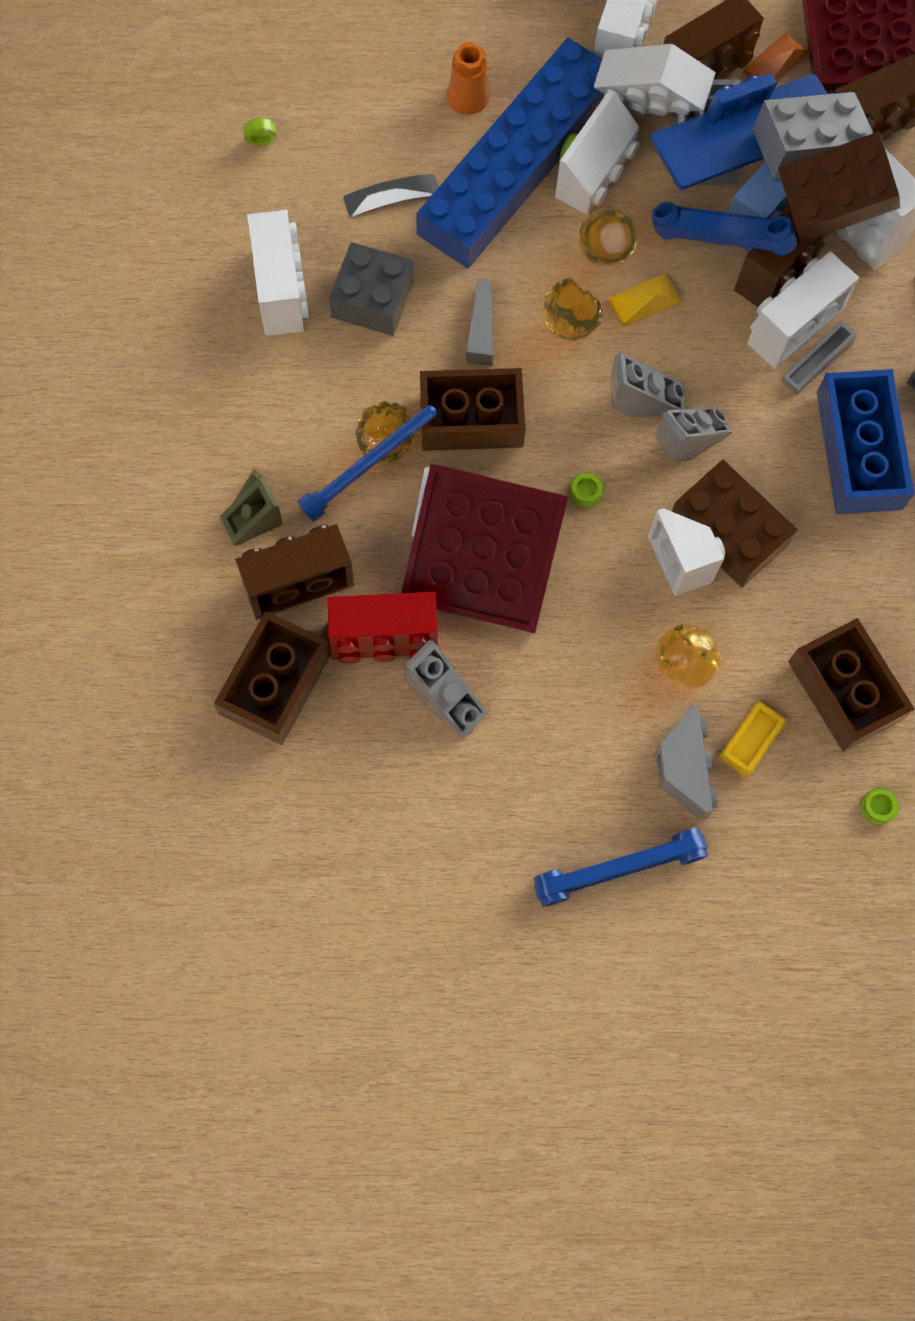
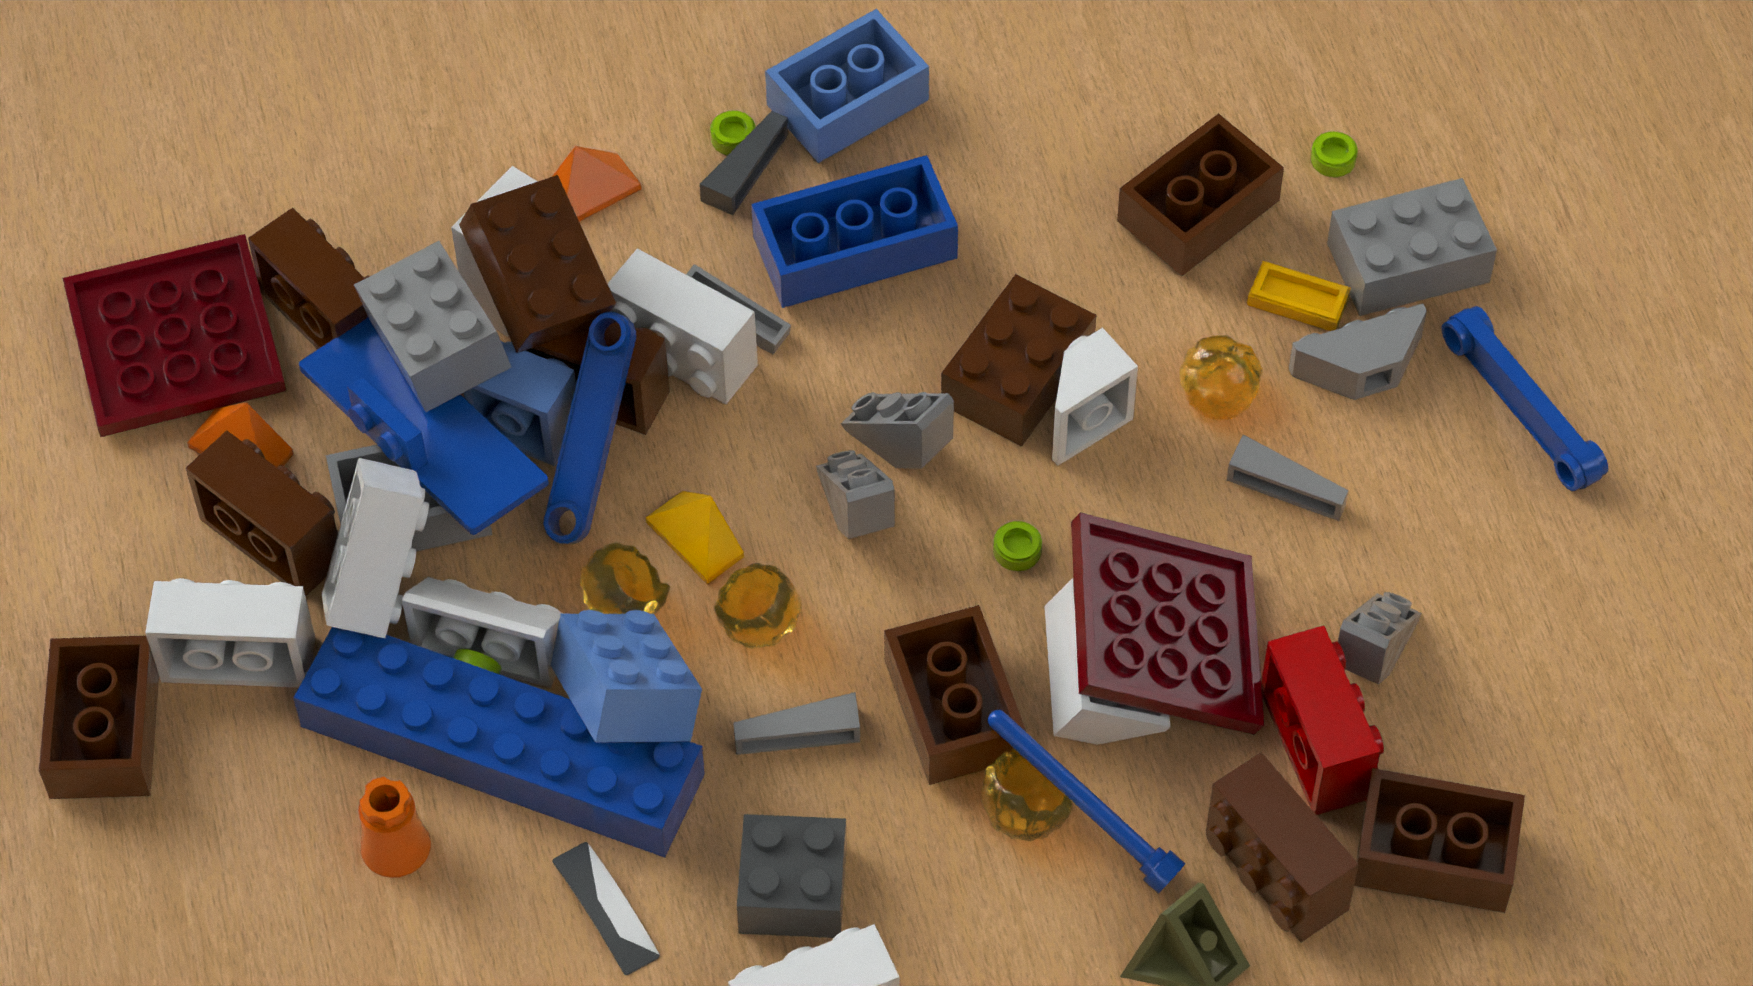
camera: 100 degrees left, 15 degrees down
(526, 209) = (625, 677): none -> medium blue brick
(599, 671) = (1284, 479): none -> light grey piece
(774, 827) = (1411, 246): none -> light grey brick

